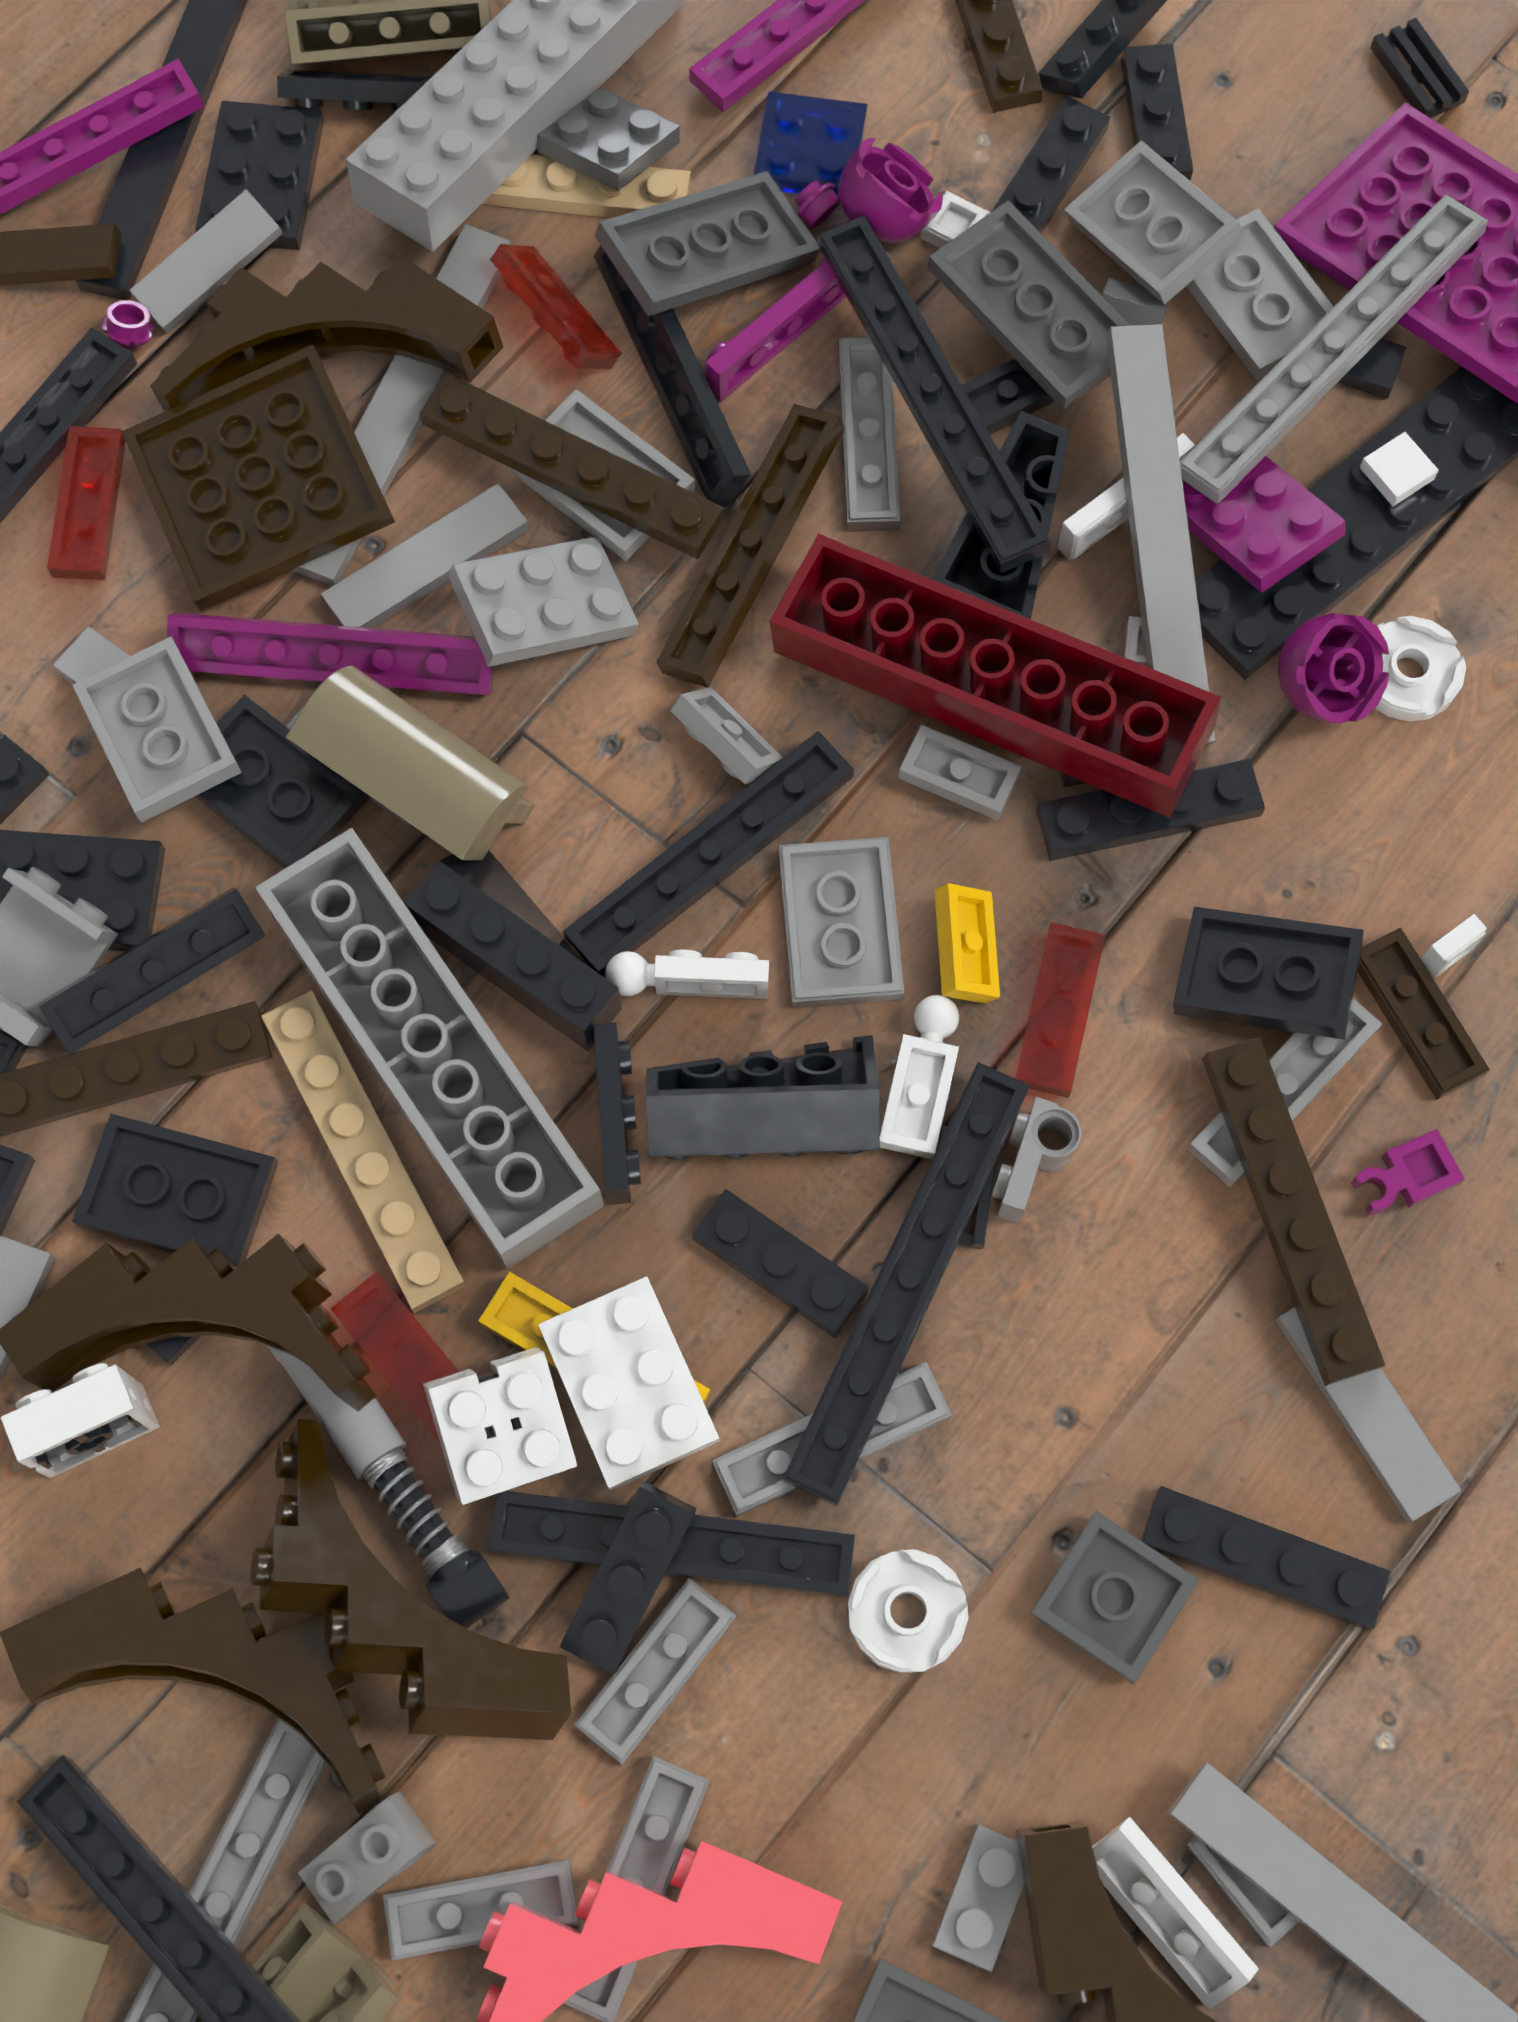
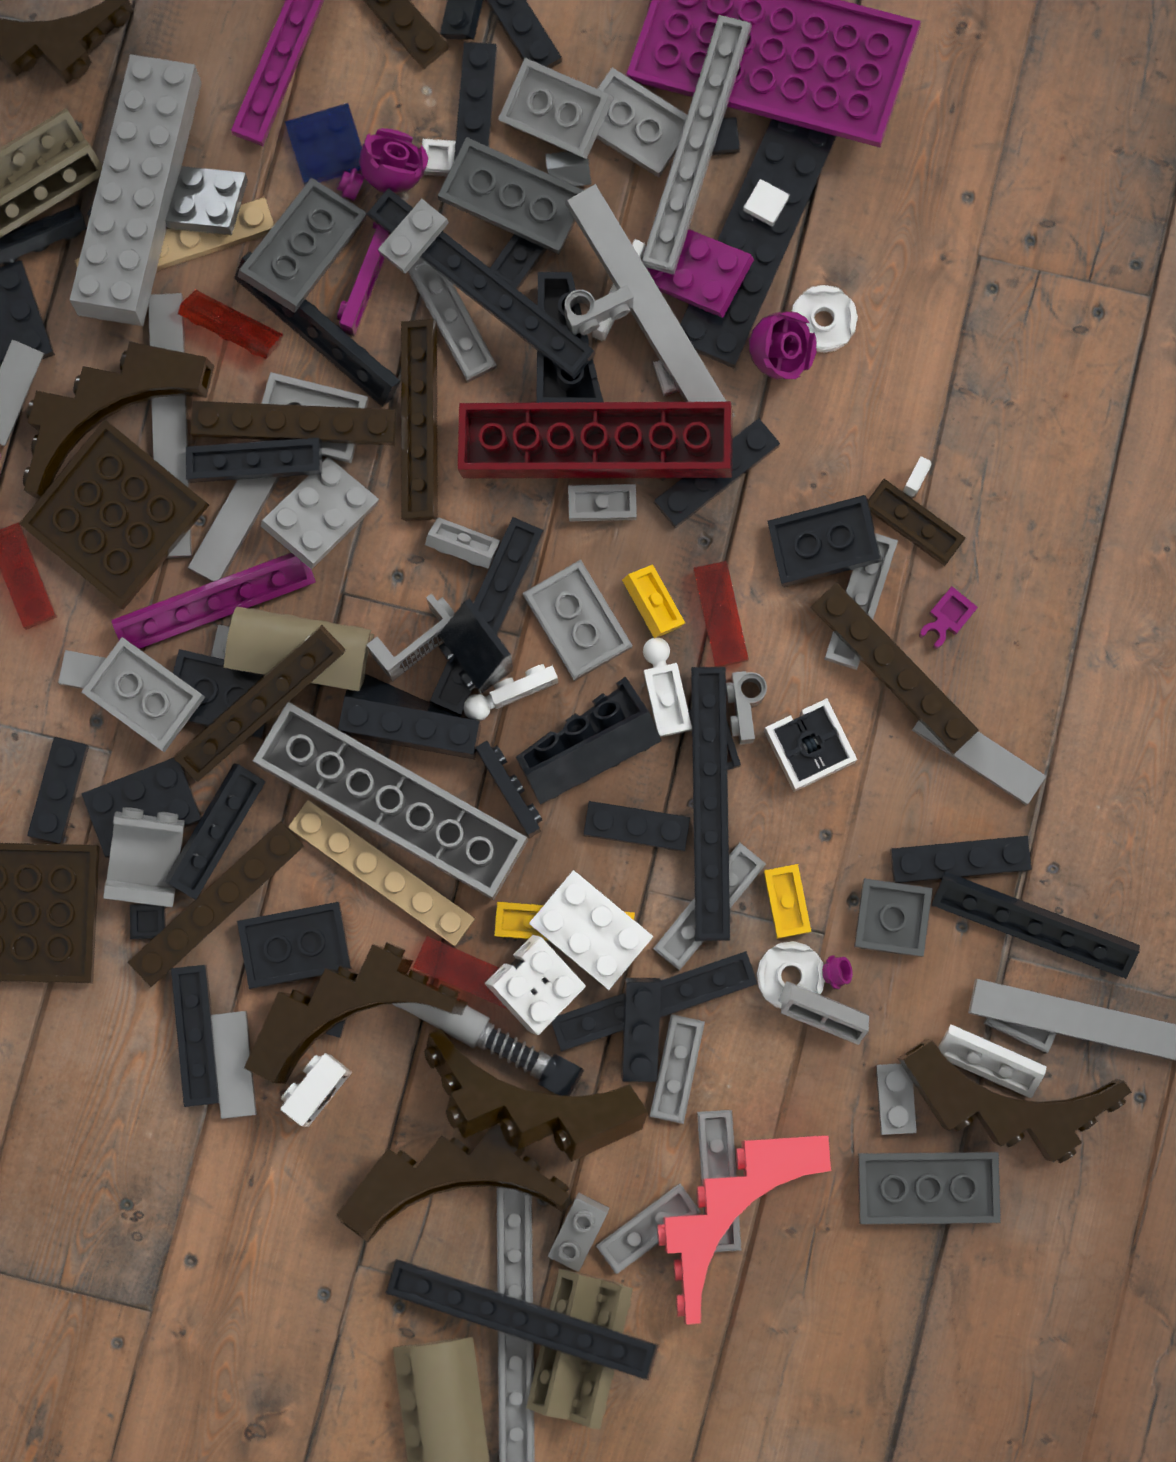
camera: 25 degrees left, 10 degrees up
(311, 809) = (260, 703): none -> dark brown plate
(489, 489) = (254, 460): none -> black plate
(587, 843) = (418, 649): none -> light grey panel
(664, 875) = (475, 648): none -> black slope
(867, 284) = (413, 236): none -> light grey plate
(931, 1696) = (824, 1013): none -> light grey piece
(957, 1489) = (787, 901): none -> yellow plate
(984, 1640) = (837, 971): none -> magenta plate
(1087, 1249) = (797, 743): none -> piece
(1097, 491) = (610, 306): none -> light grey plate
(1345, 1725) = (1035, 925): none -> black plate

